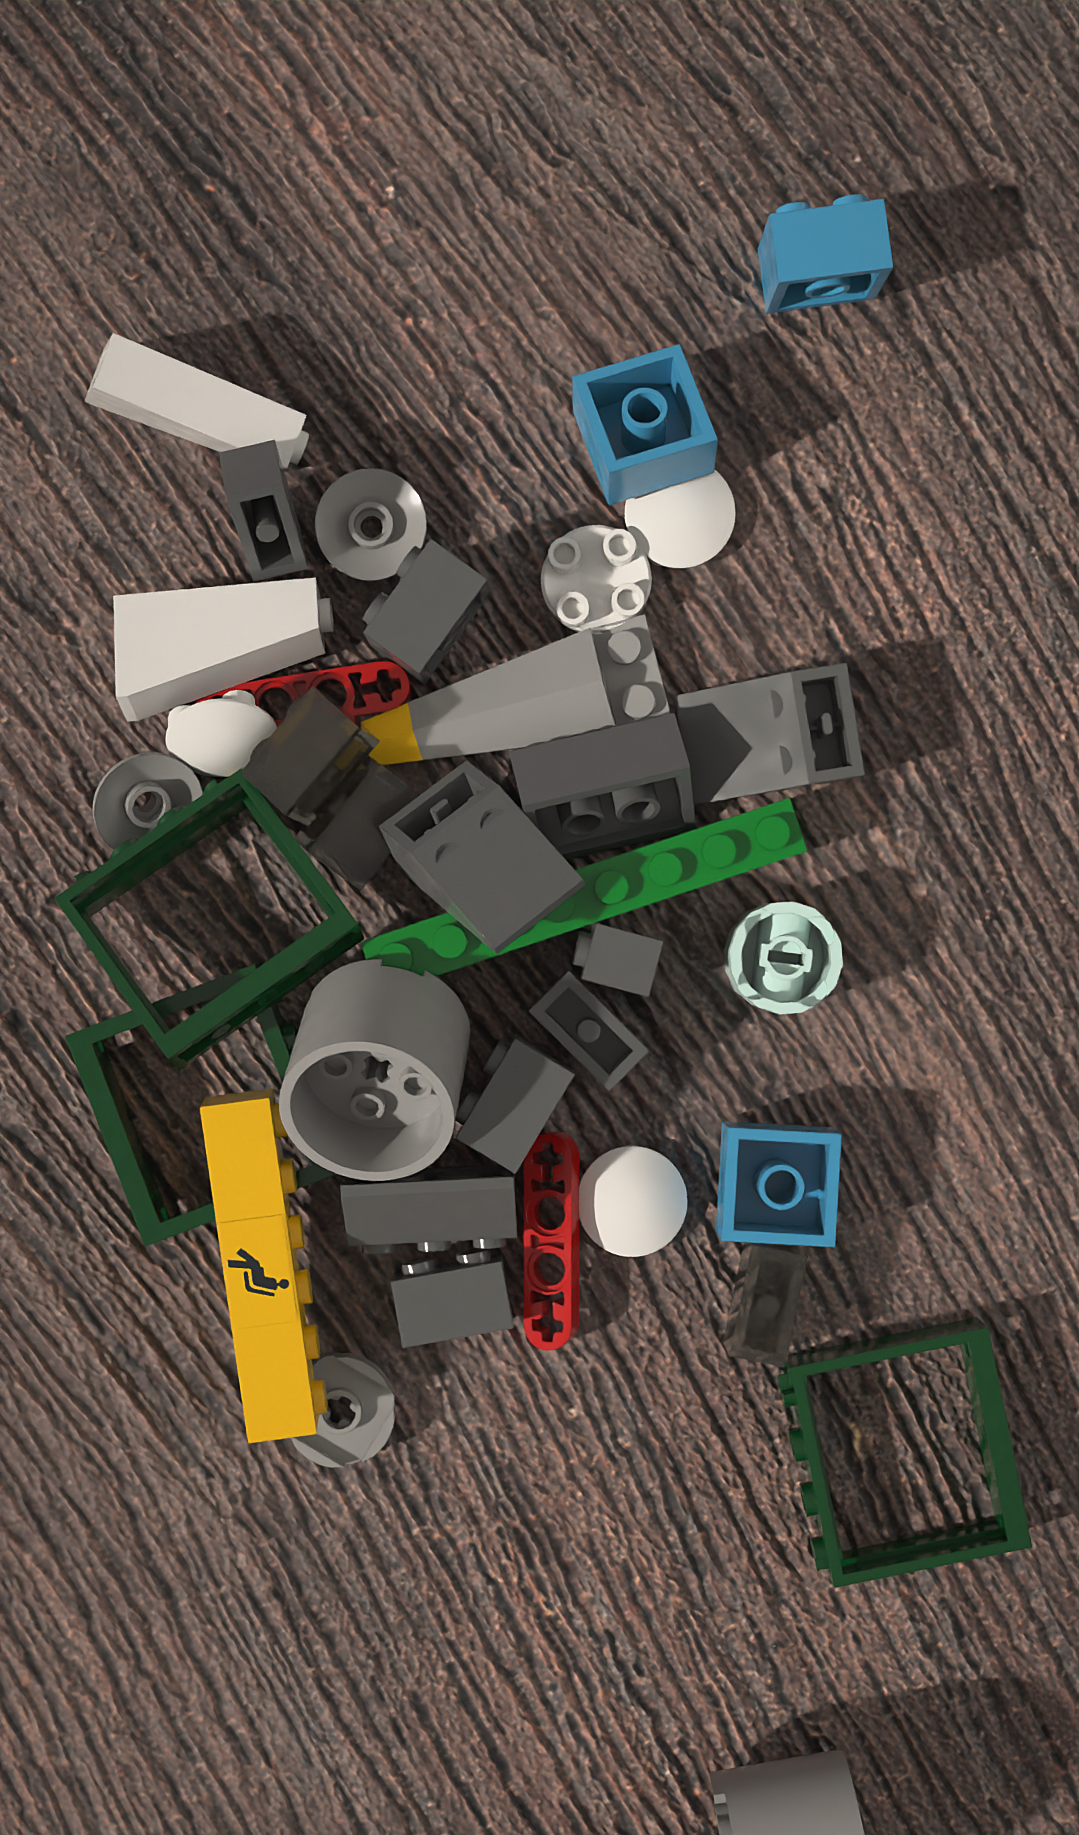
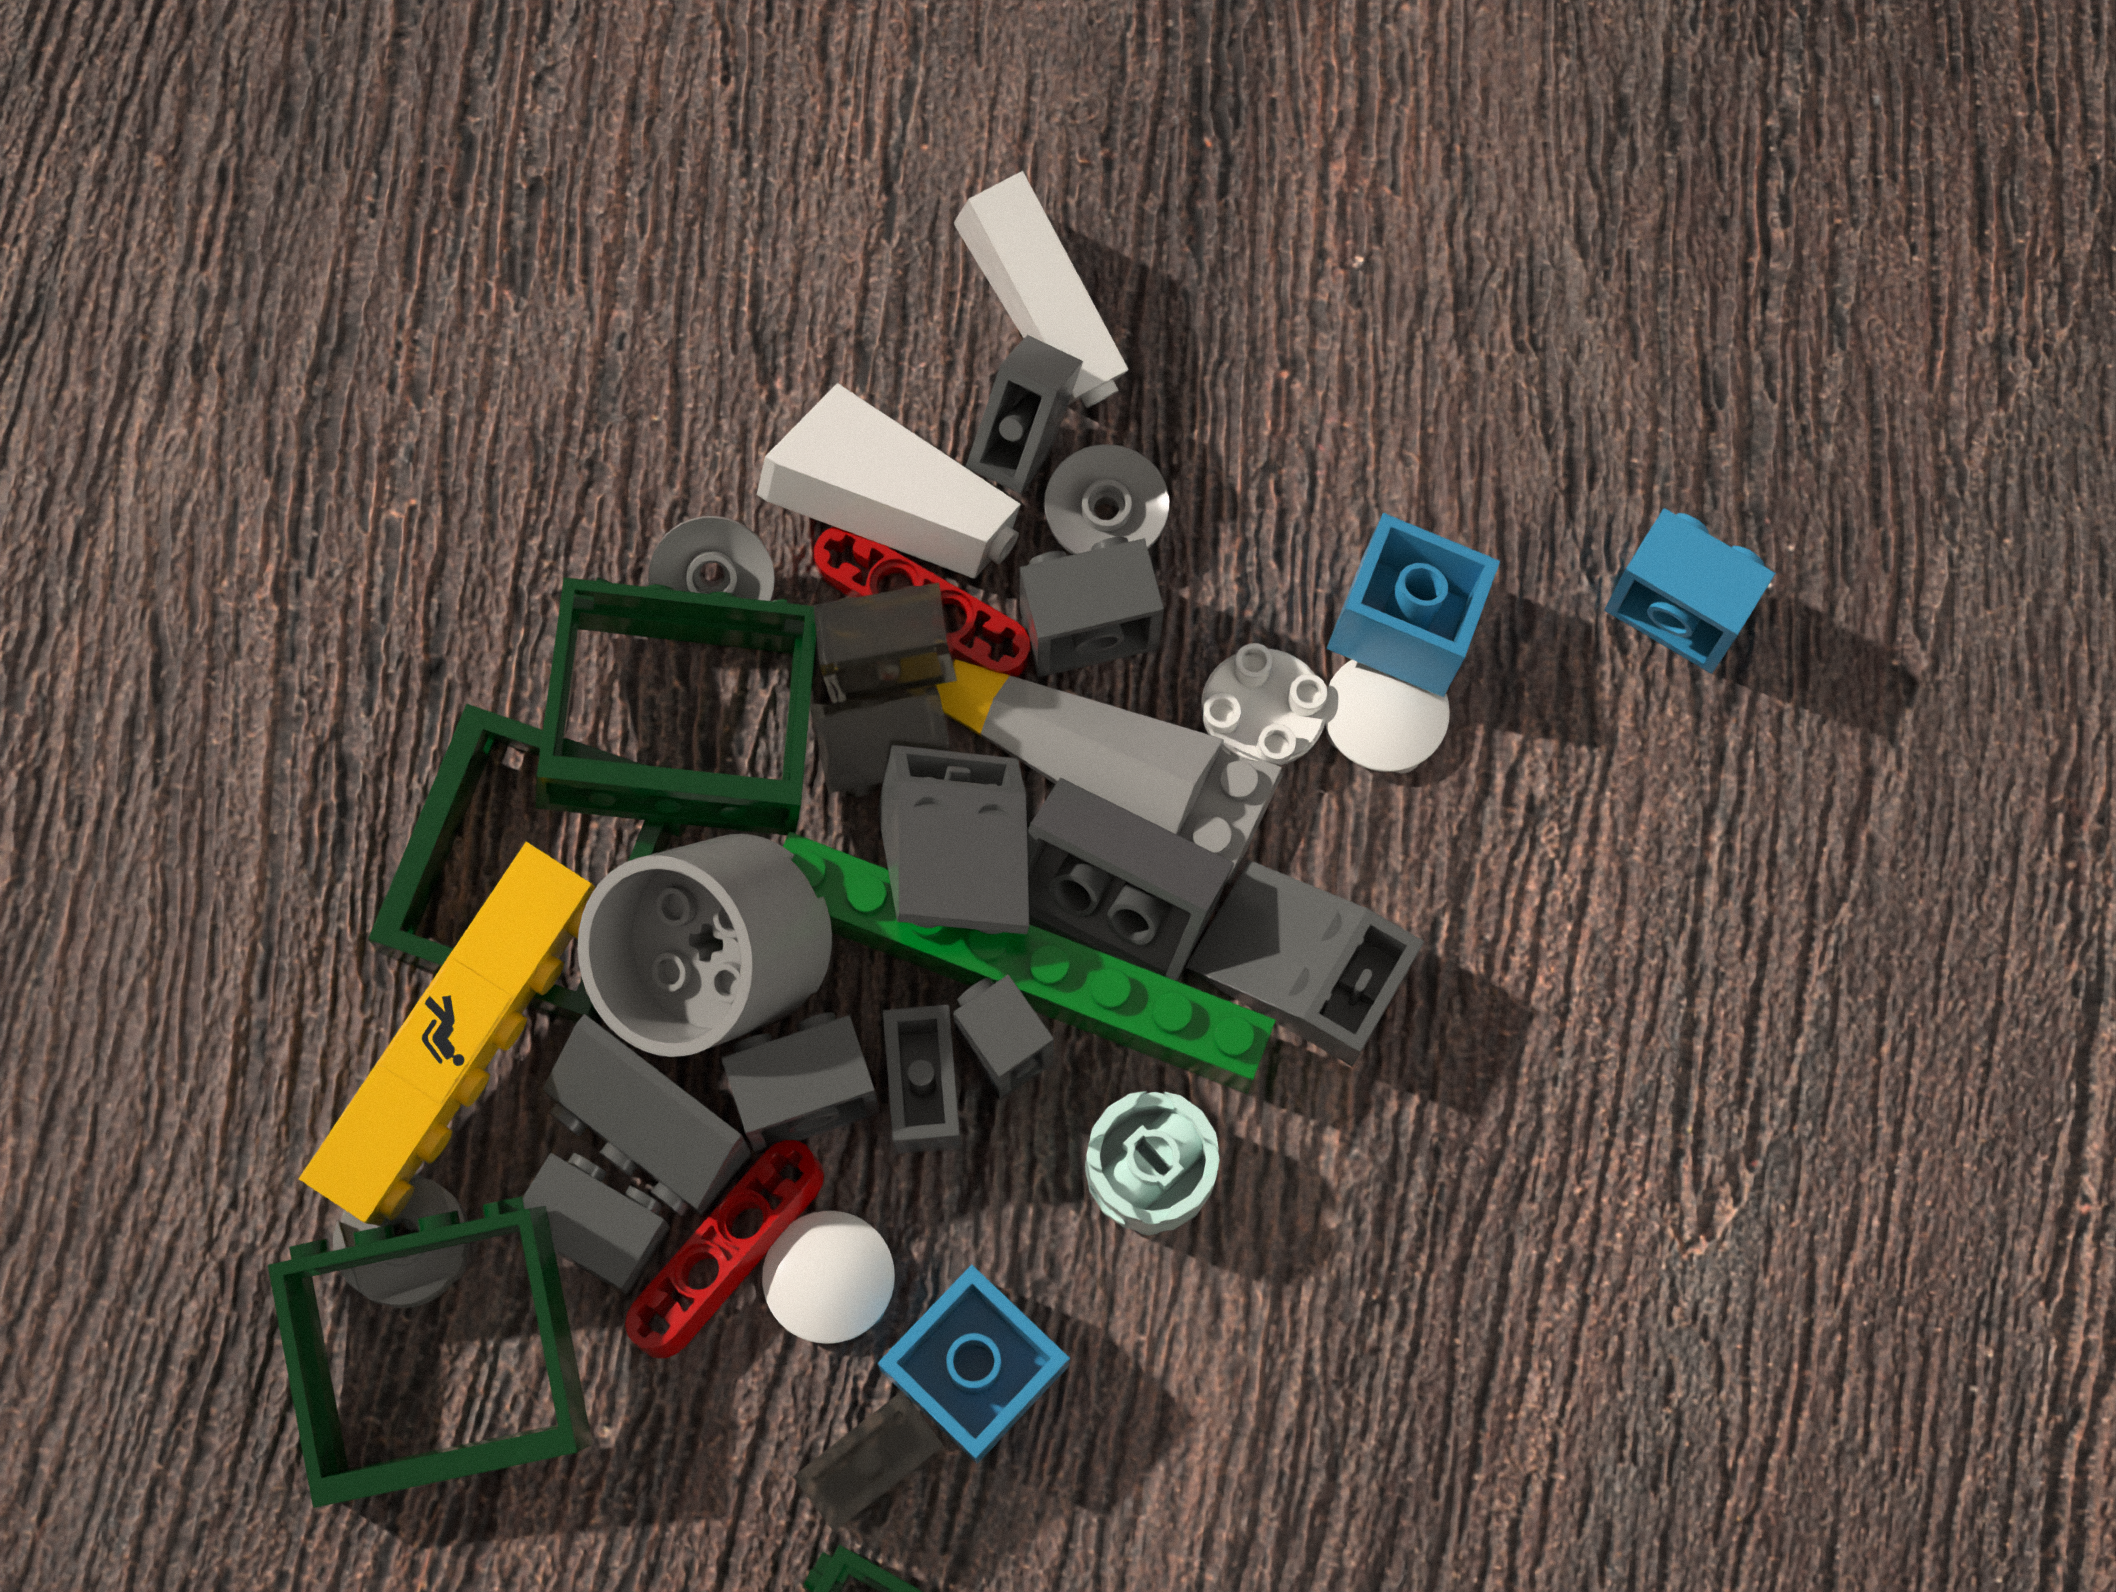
camera: 40 degrees right, 15 degrees down
(218, 733) = (823, 560): white dish -> none
(440, 1590) = (311, 1377): none -> dark green window

